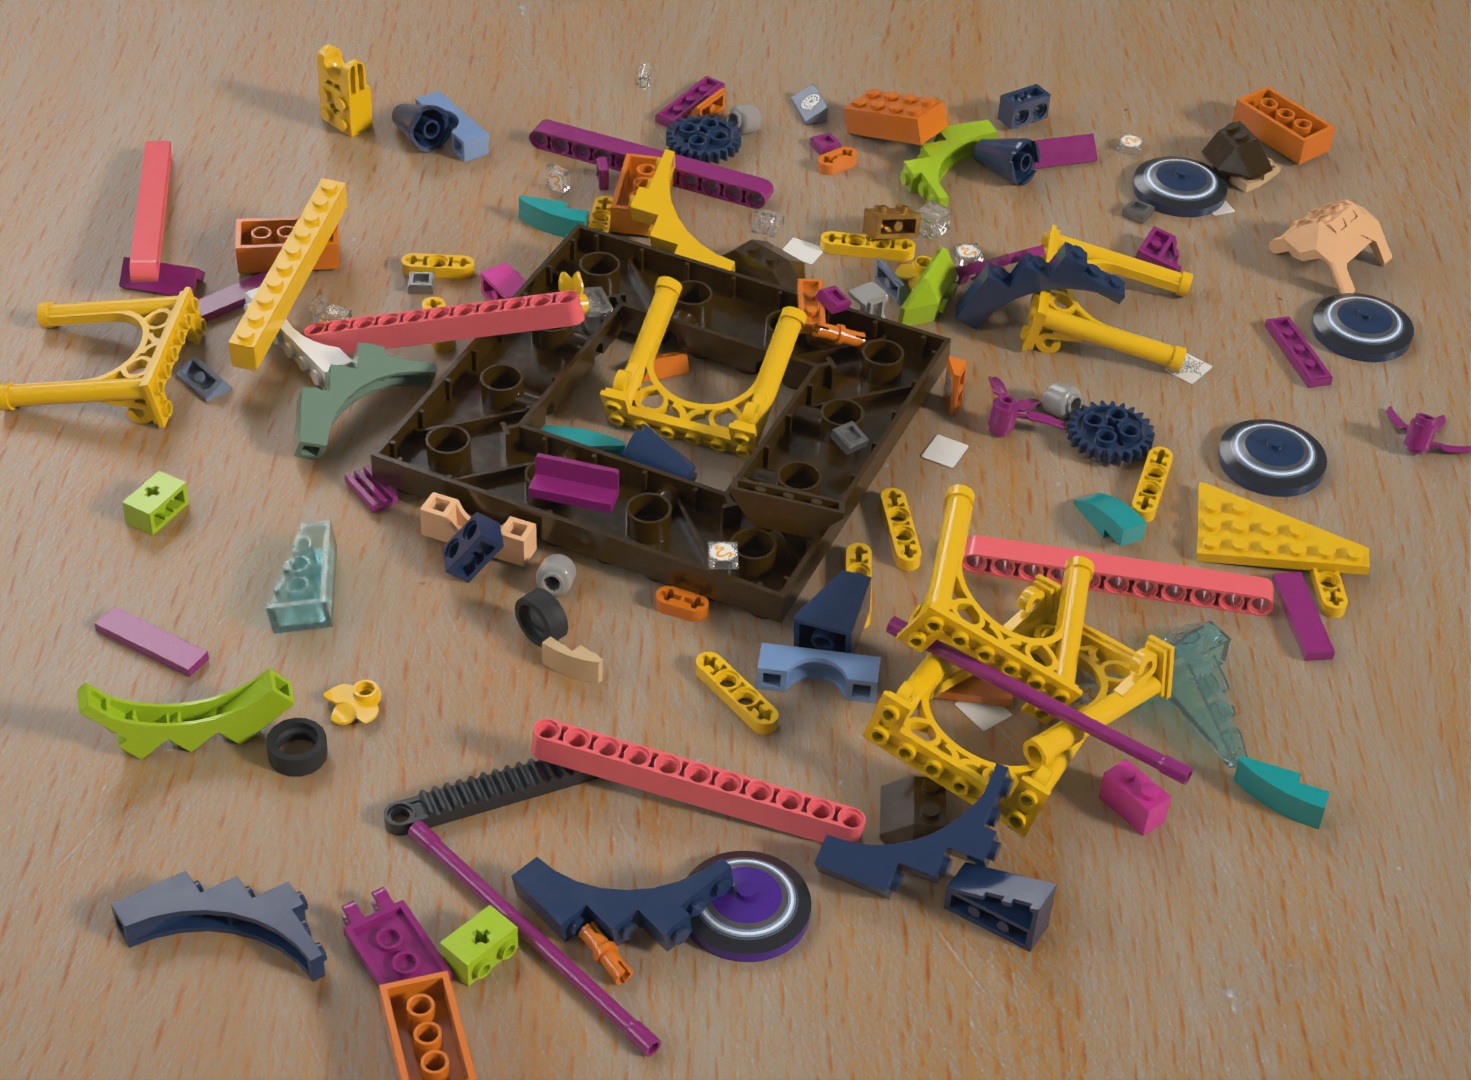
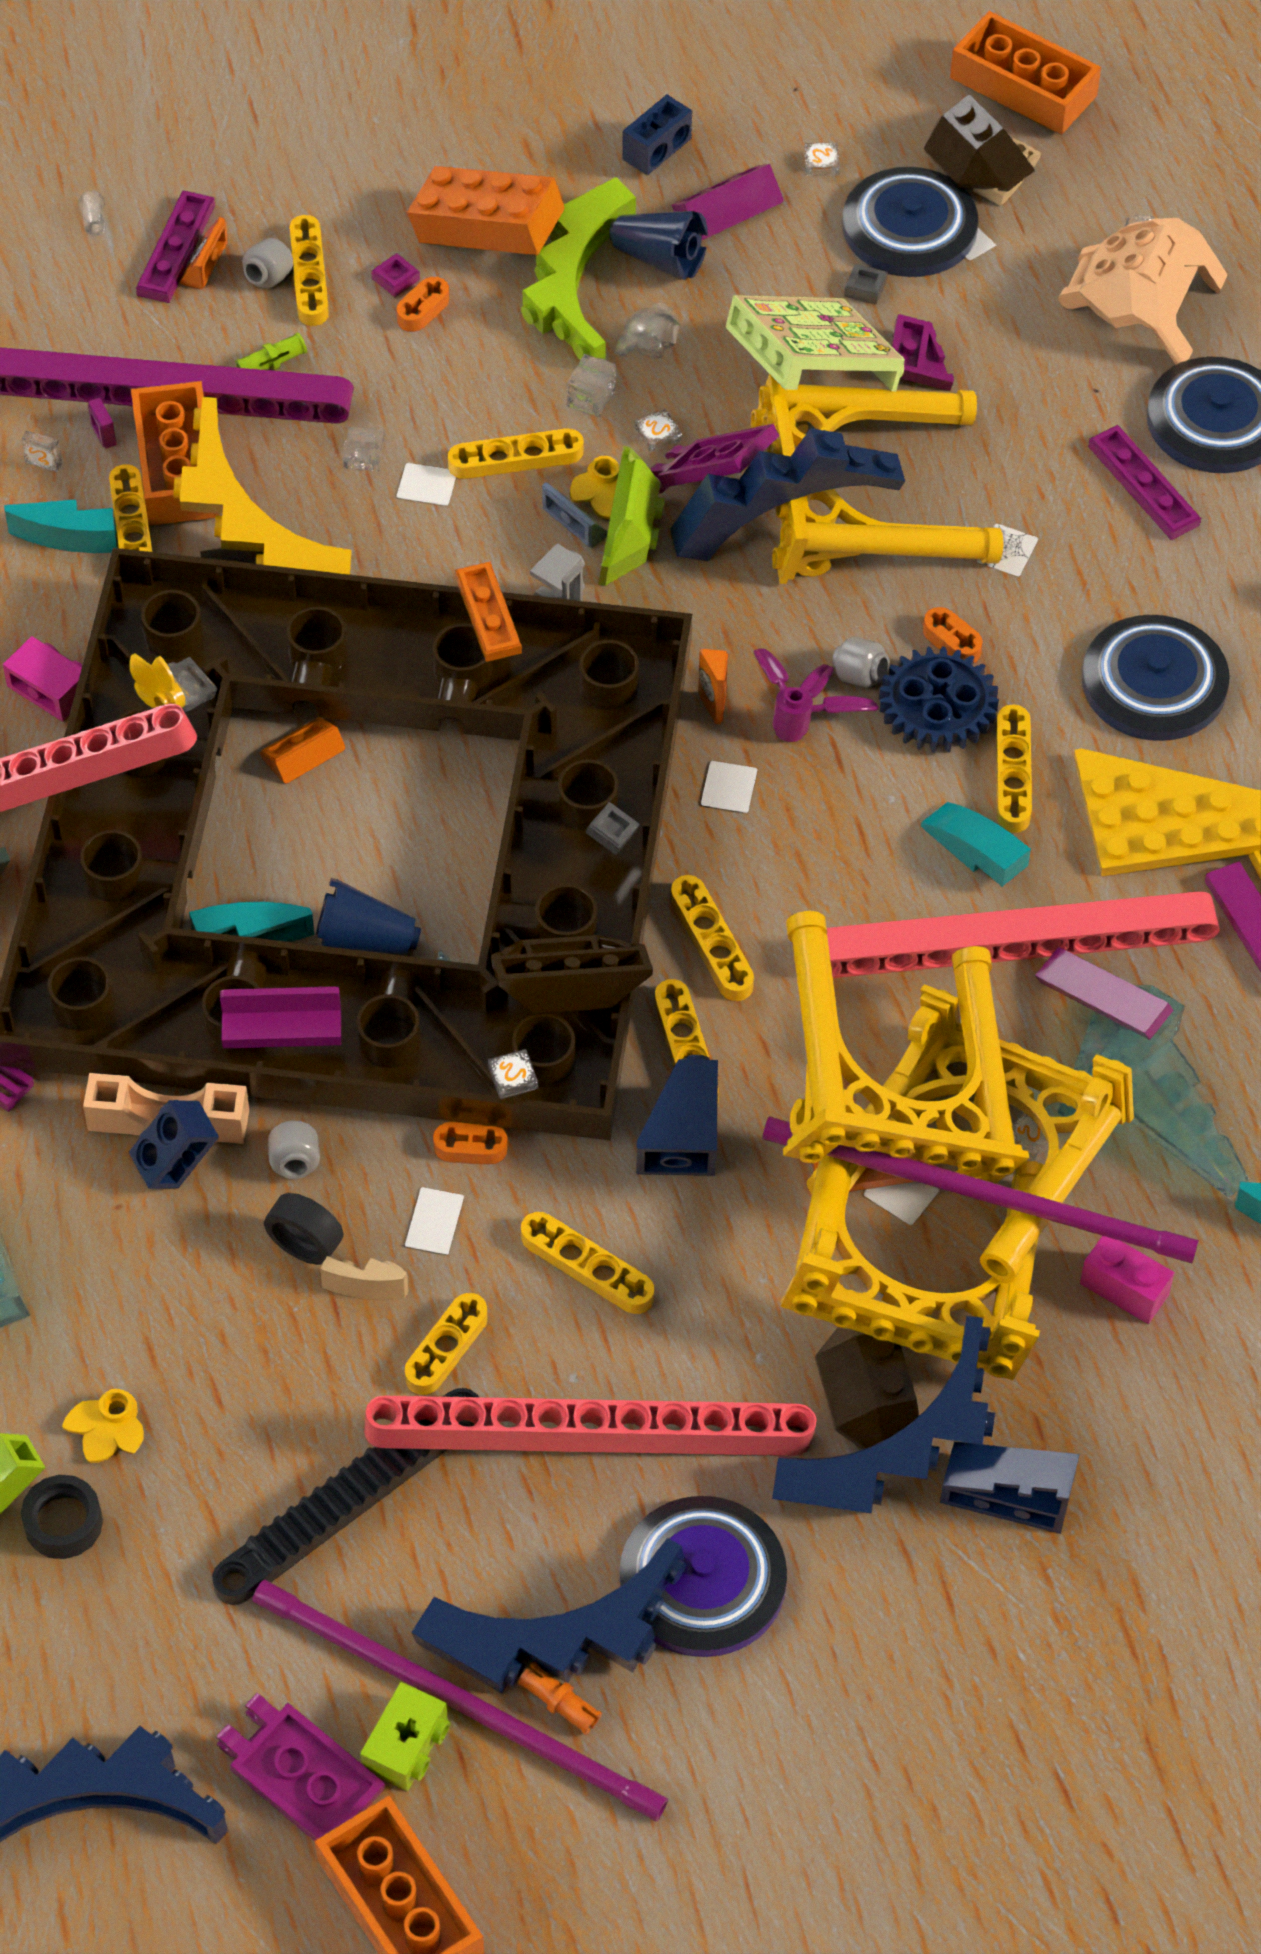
camera: 15 degrees left, 15 degrees up
(608, 726) = (446, 1326): none -> yellow beam
(638, 644) = (434, 1221): none -> white sticker
(703, 138) = (221, 317): dark blue gear -> none
(743, 162) = (274, 354): none -> lime pin
(745, 432) = (287, 768): yellow arch -> none
(767, 263) = (392, 535): dark brown wedge -> none
(770, 130) = (309, 270): none -> yellow beam
(785, 665) = (727, 1193): medium blue arch -> none
(810, 105) = (351, 207): sand blue slope -> none
(833, 299) = (516, 595): magenta tile -> none
(838, 334) = (540, 651): orange pin -> none
(891, 223) = (540, 411): pearl gold brick -> none
(981, 201) = (650, 330): none -> clear head
(1063, 207) = (811, 335): none -> yellowish green panel
(1132, 397) = (954, 634): none -> orange beam
(1174, 618) = (1104, 993): none -> tile

